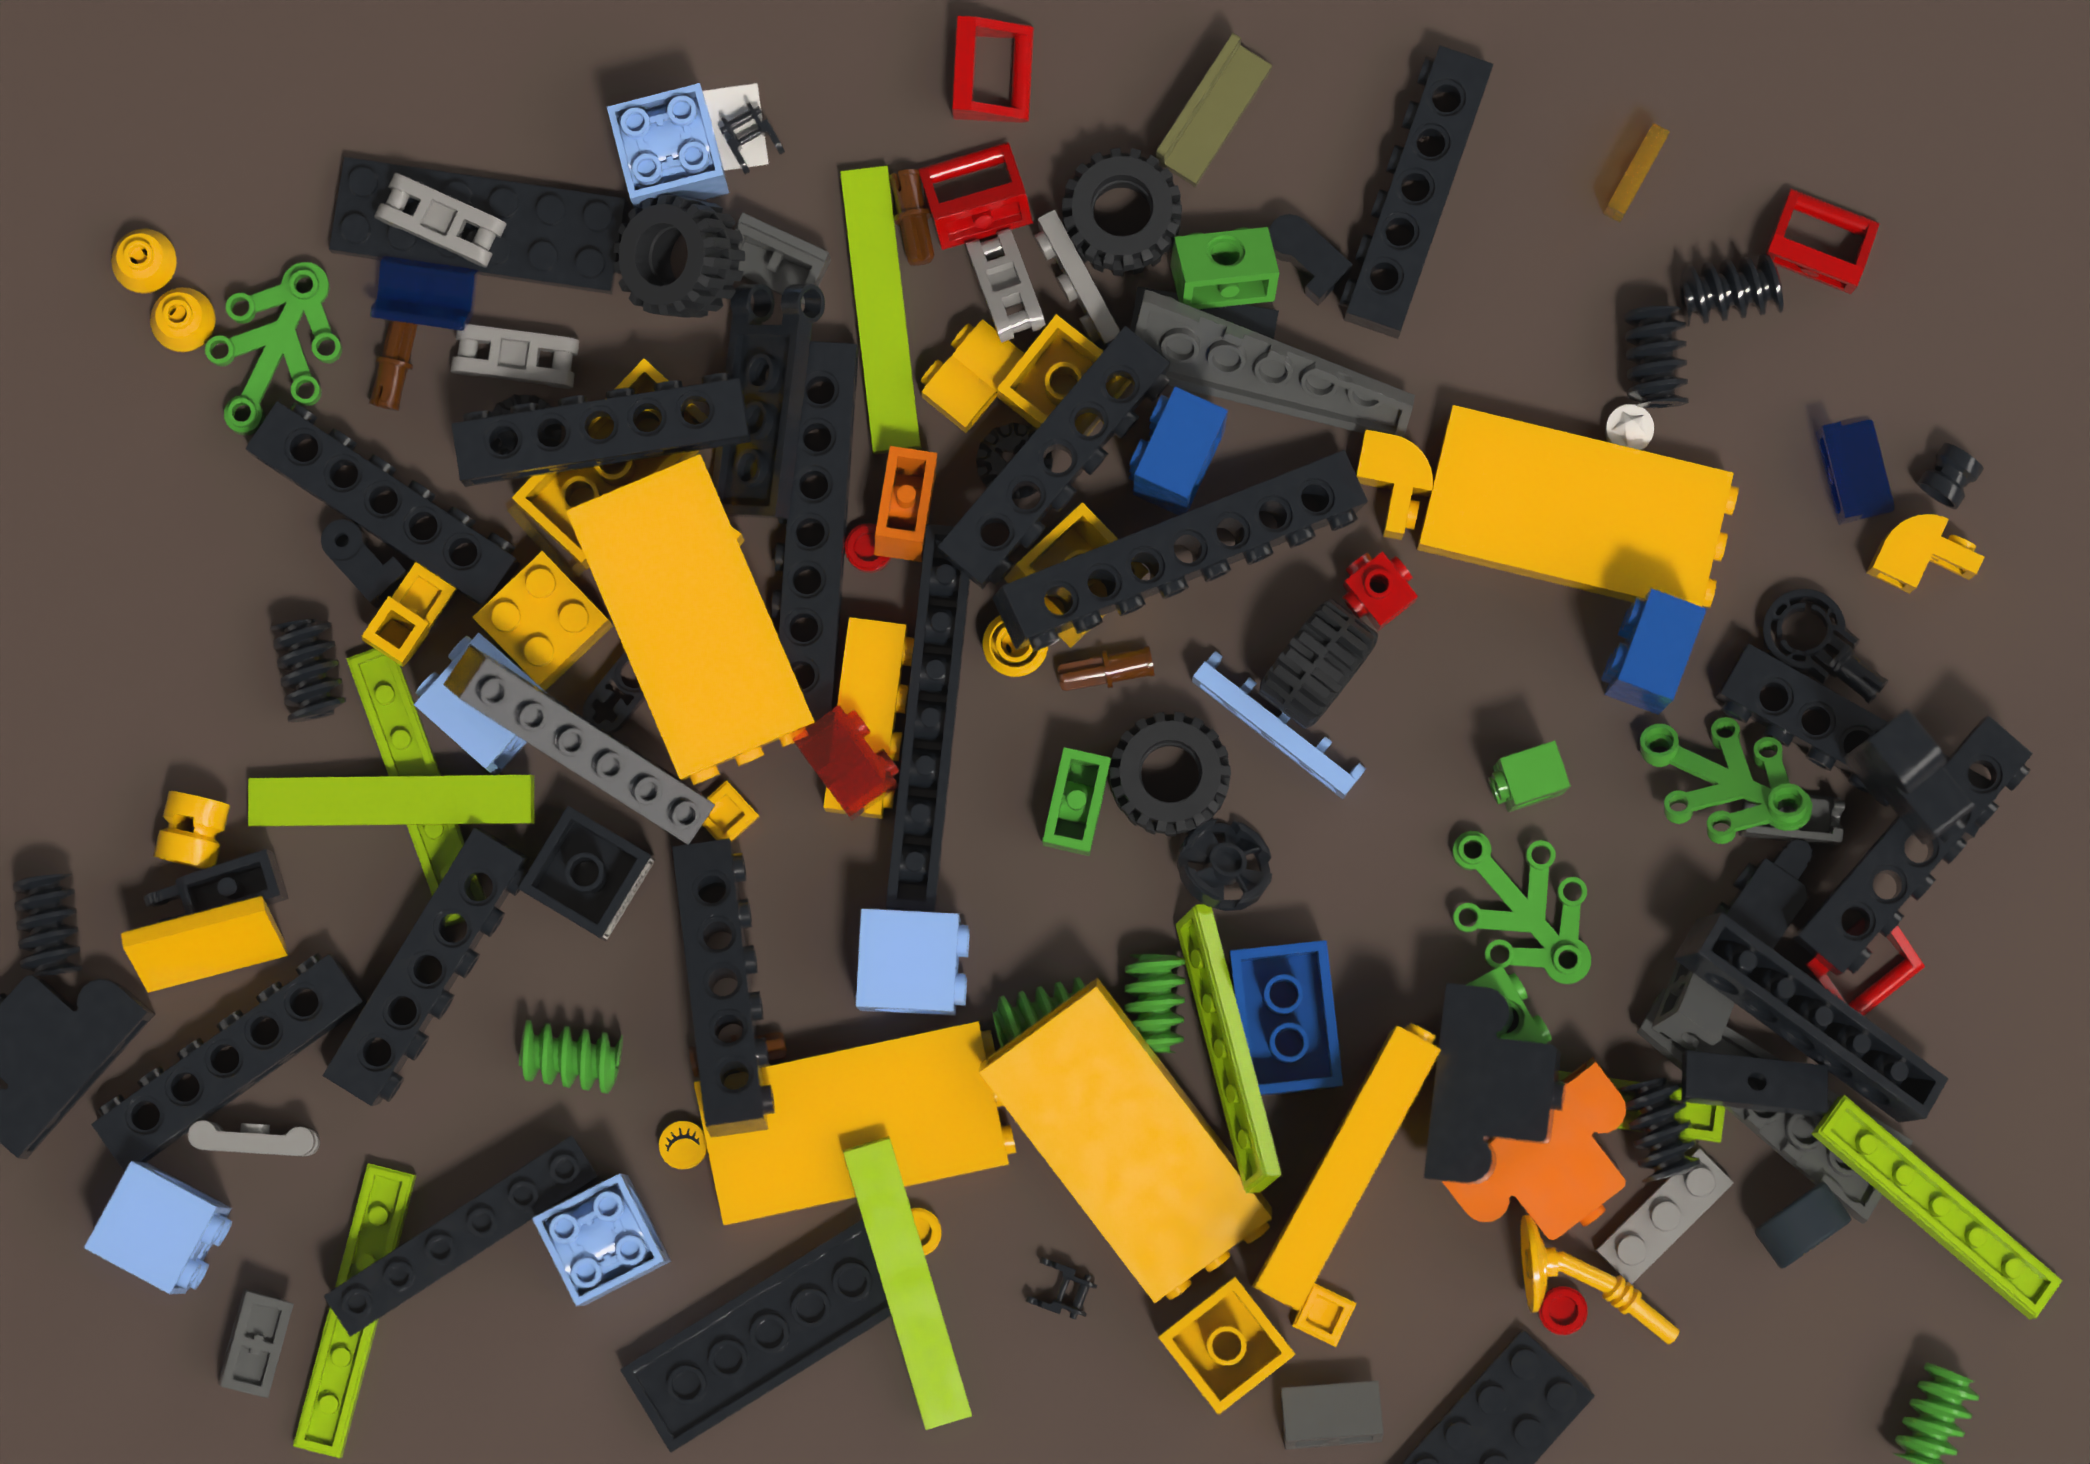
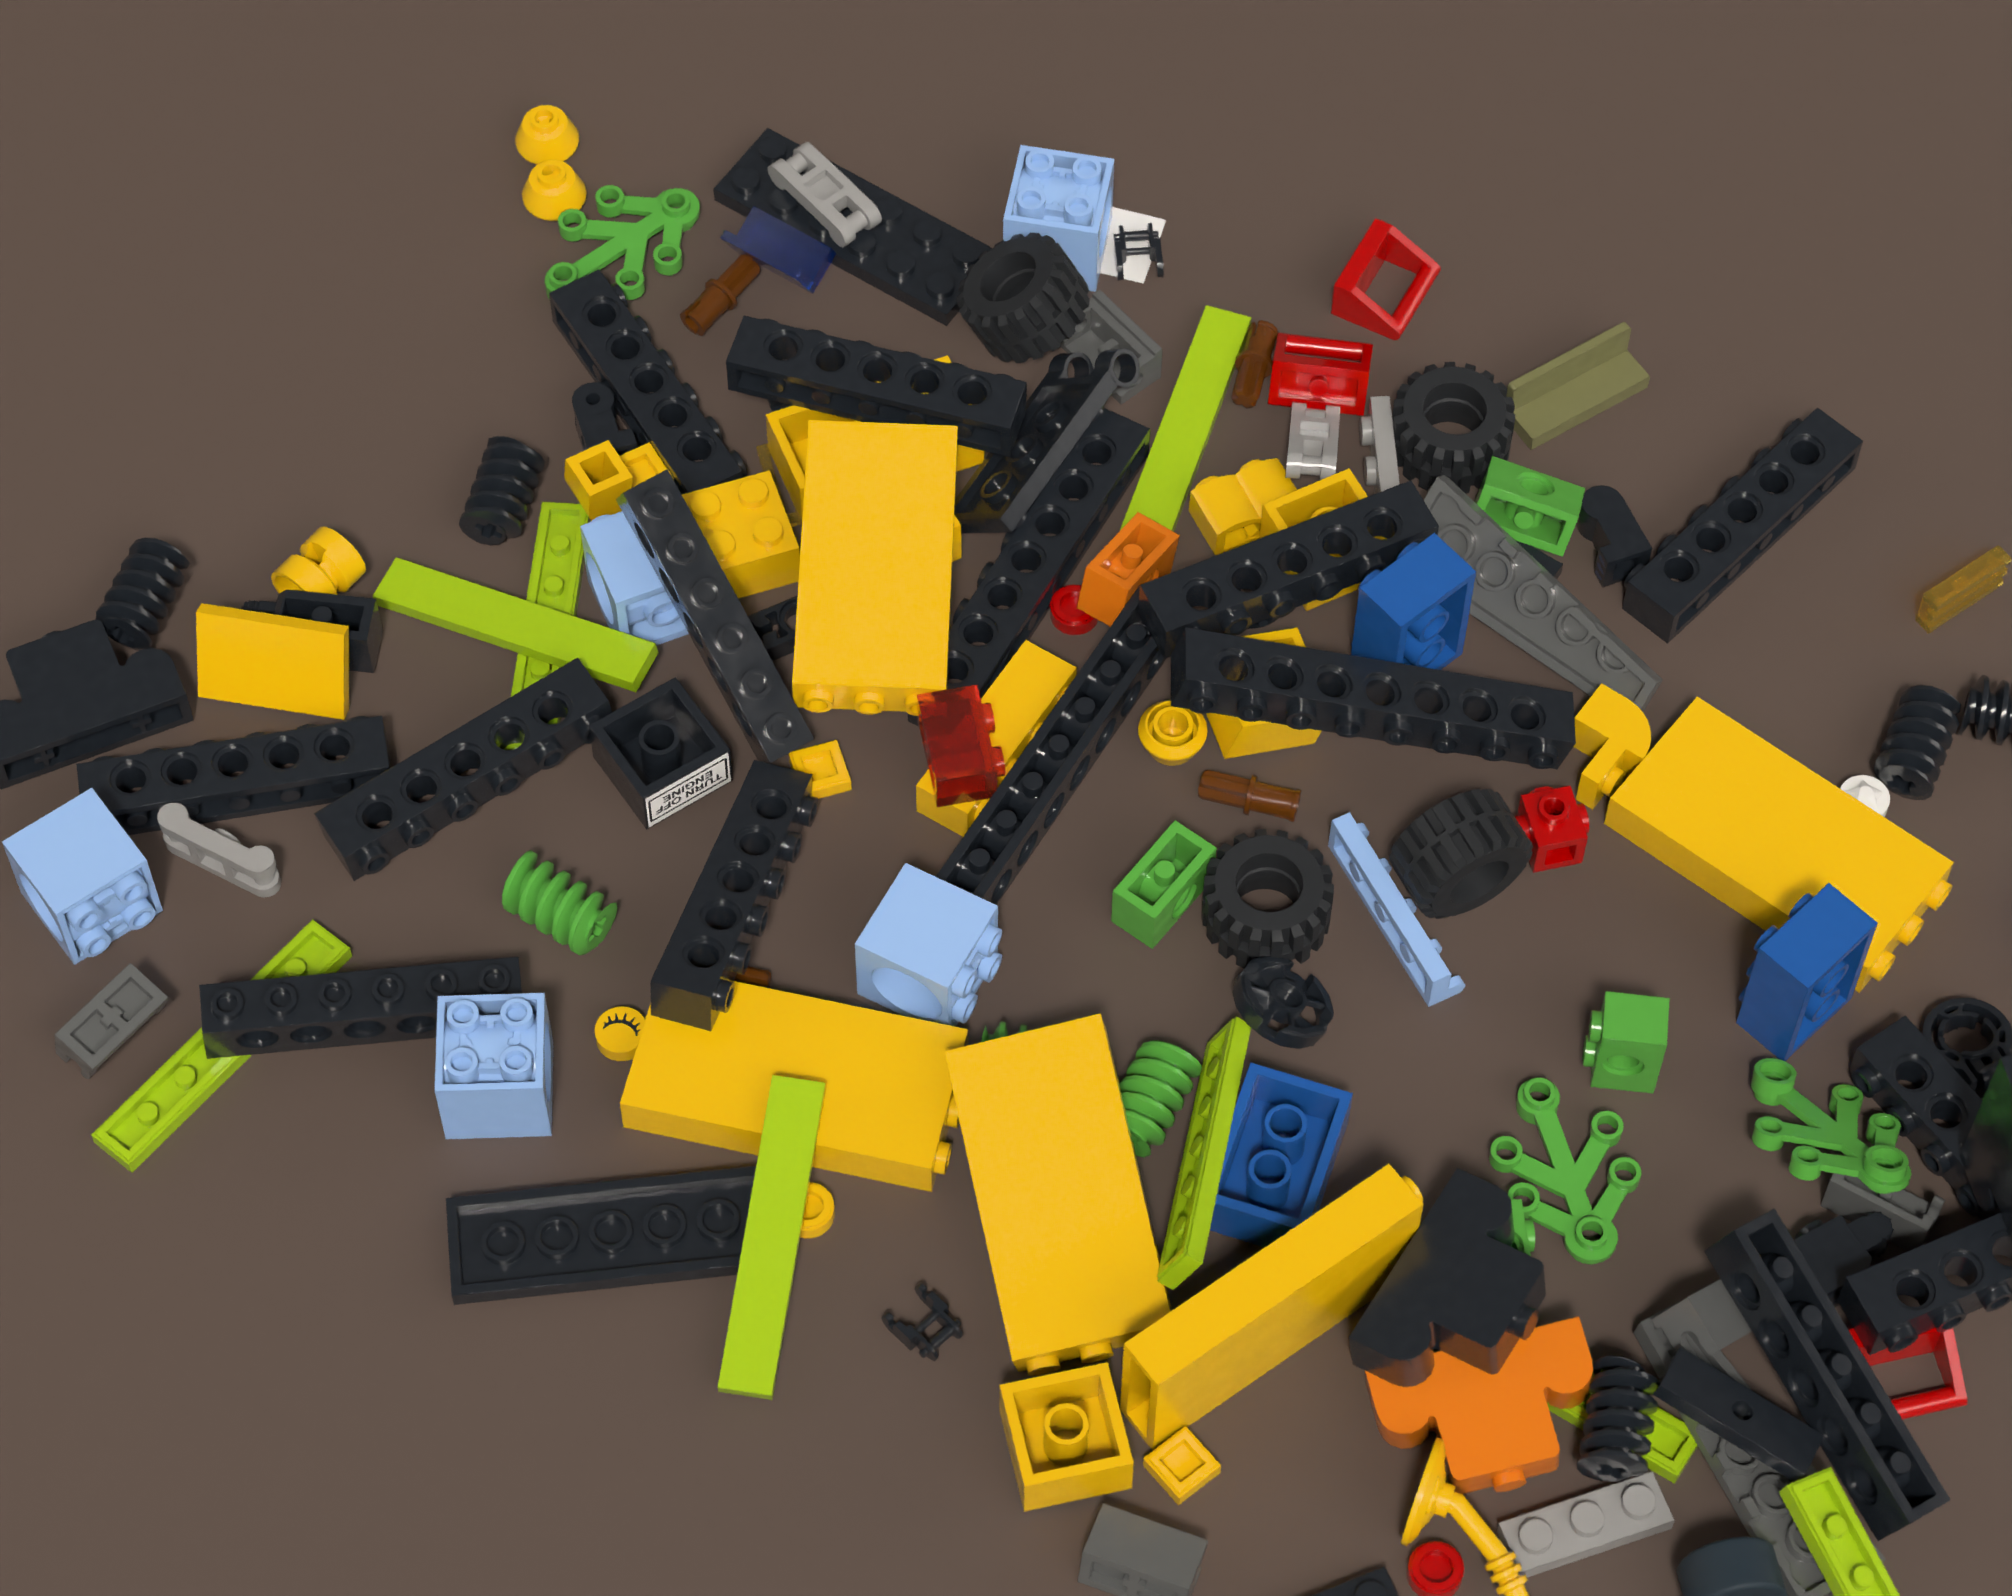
camera: 20 degrees right, 25 degrees down
(515, 356) = (830, 318): light grey plate -> none

